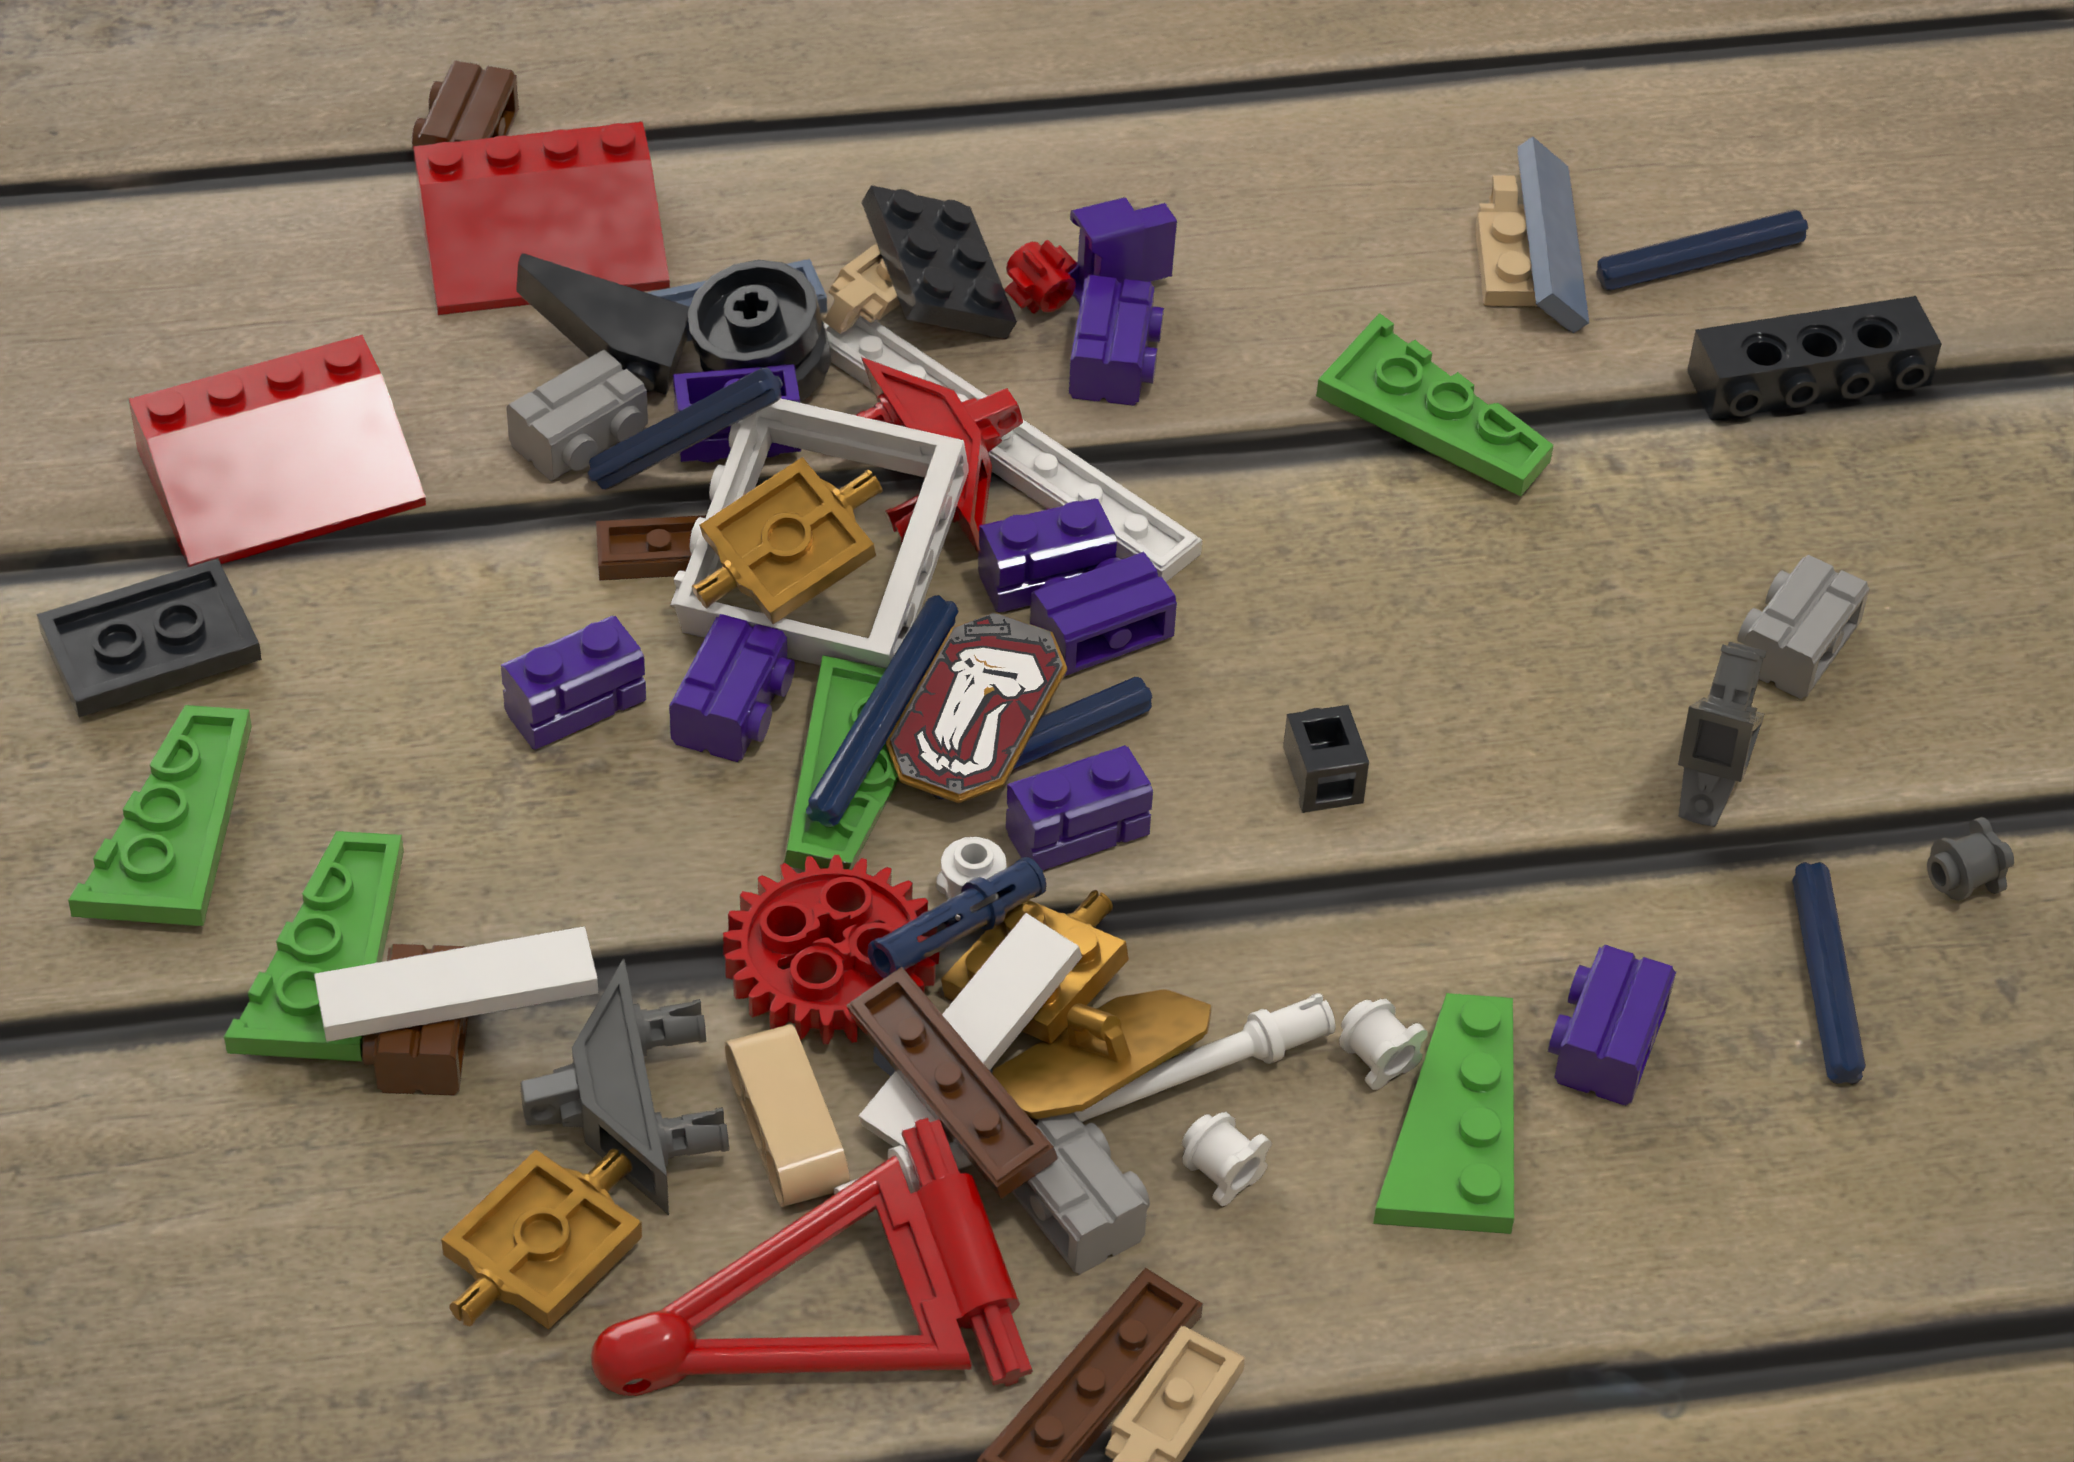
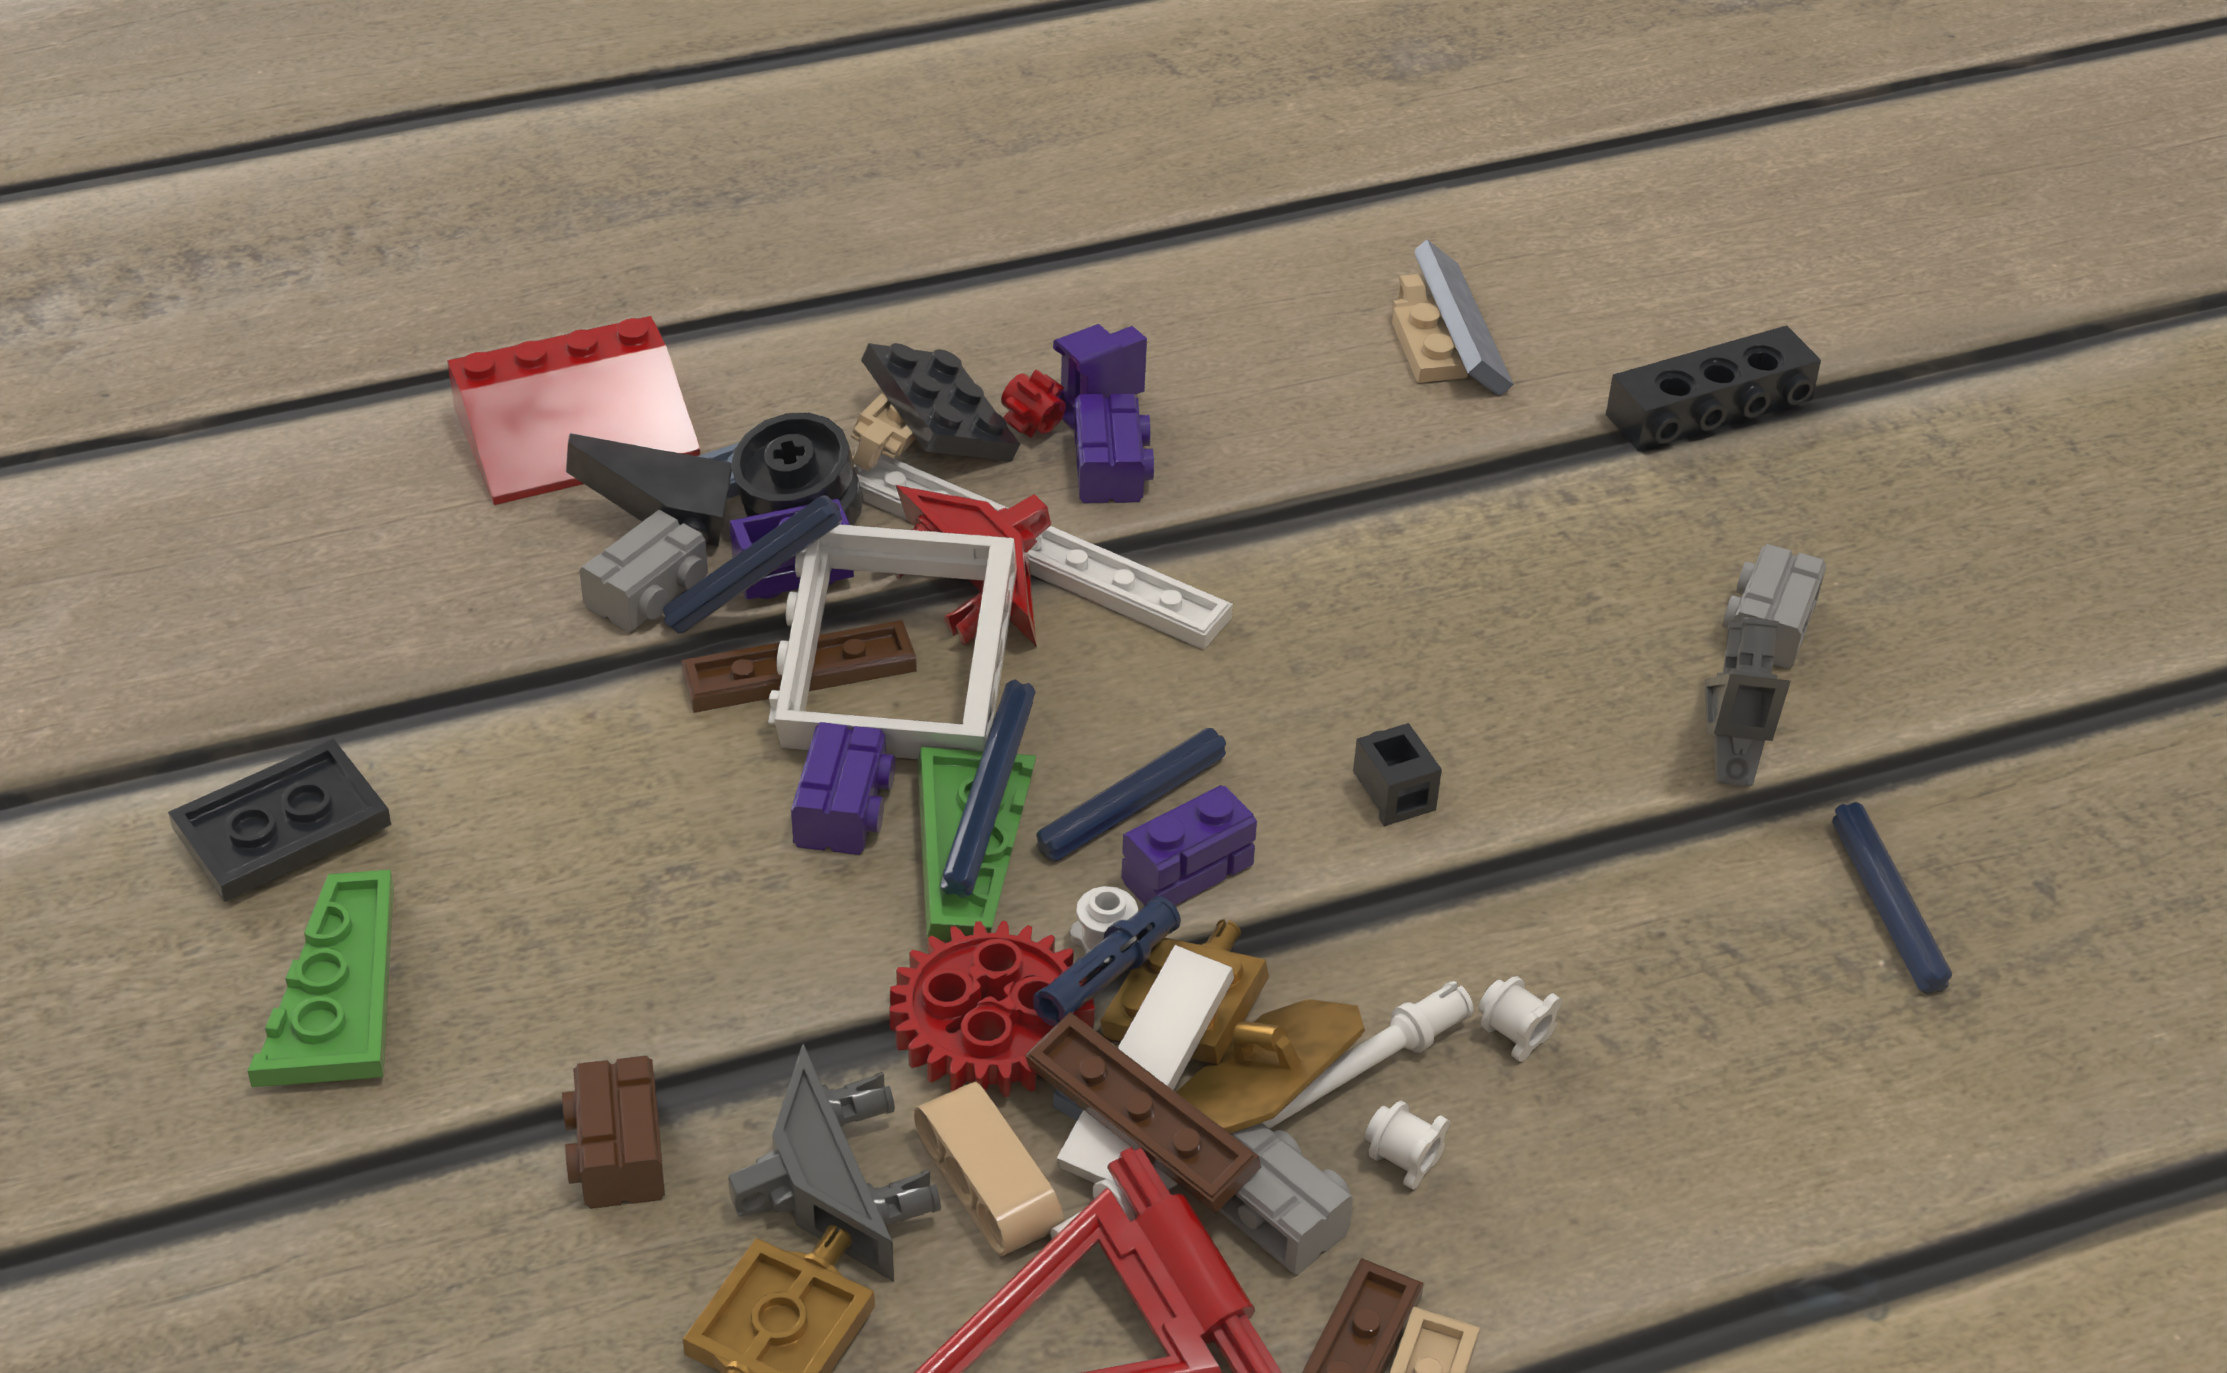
camera: 10 degrees left, 5 degrees down
(276, 452) = (368, 639): slope -> none
(336, 928) = (510, 1099): bright green wing -> none
(456, 983) = (647, 1091): white tile -> none
(469, 105) = (487, 322): reddish brown brick -> none
(573, 682) = (694, 802): dark purple brick -> none
(787, 540) = (871, 646): pearl gold plate -> none
(976, 707) = (1072, 773): shield -> none
(1040, 546) = (1100, 633): dark purple brick -> none
(1105, 611) = (1162, 677): dark purple brick -> none
(1421, 403) = (1411, 473): bright green wing -> none
(1459, 1129) = (1610, 1091): bright green wing -> none
(1613, 1024) = (1721, 969): dark purple brick -> none
(1701, 250) = (1589, 315): dark blue axle -> none
(1970, 862) = (1982, 784): dark grey brick -> none

